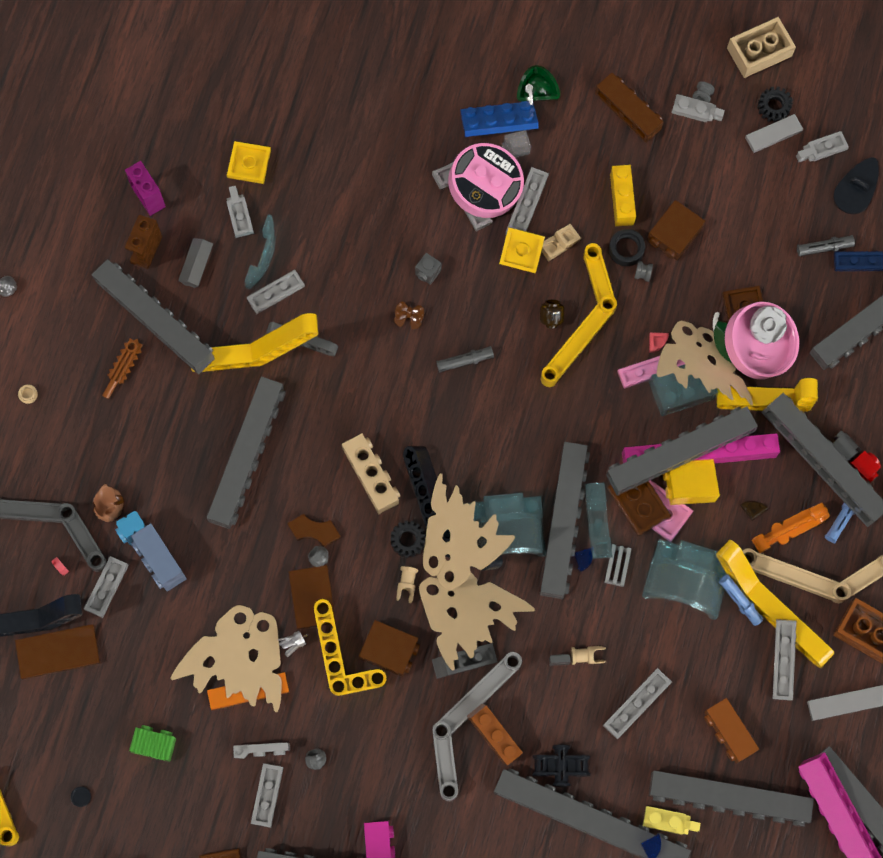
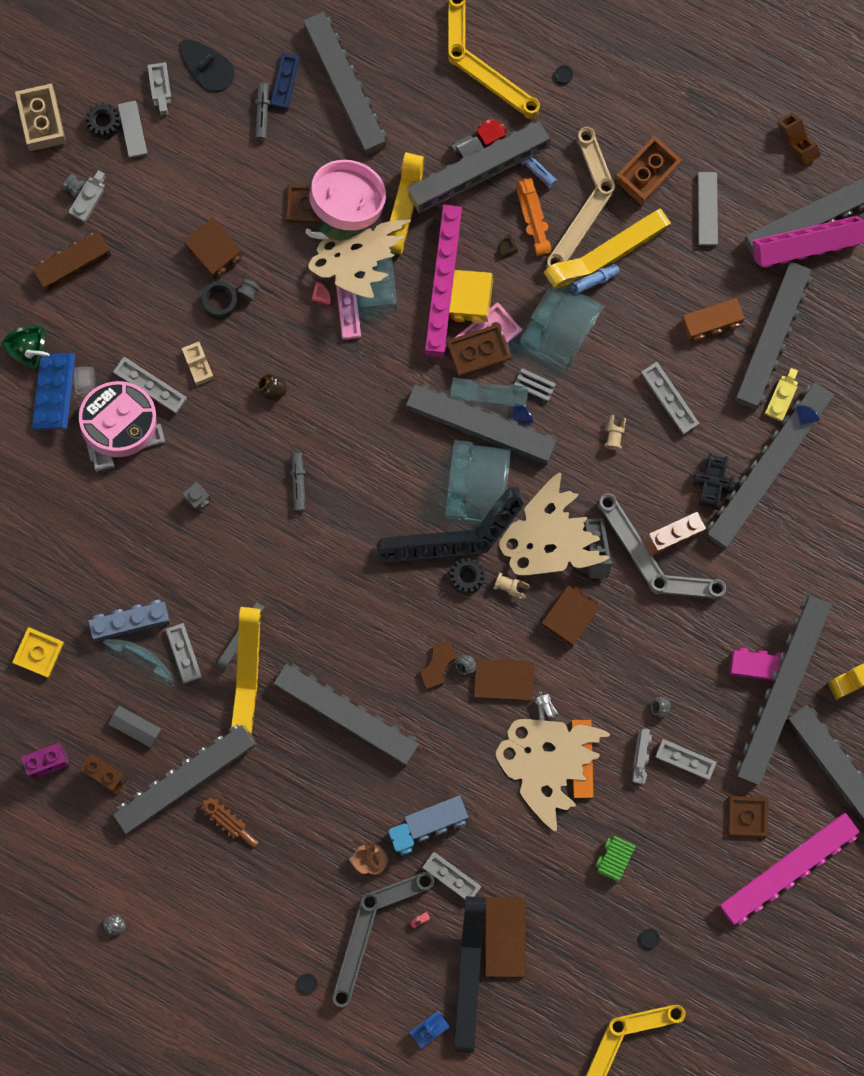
camera: 80 degrees left, 5 degrees up
(27, 394) = (235, 922): tan plate -> none
(239, 213) = (91, 673): light grey hinge -> none
(294, 234) = (129, 621): none -> sand blue brick
(337, 657) = (568, 666): yellow beam -> none
(381, 501) = (367, 610): tan brick -> none
(402, 312) = (240, 520): reddish brown piece -> none
(463, 538) = (486, 519): tan piece -> none
(522, 250) = (199, 400): yellow plate -> none
(563, 659) = (614, 459): dark grey tile -> none
(592, 323) = (289, 349): yellow piece -> none
(623, 195) = (164, 290): yellow brick -> none
(681, 450) = (444, 296): dark grey brick -> none
(768, 324) = (334, 184): tile -> none
(784, 659) = (658, 254): light grey tile -> none

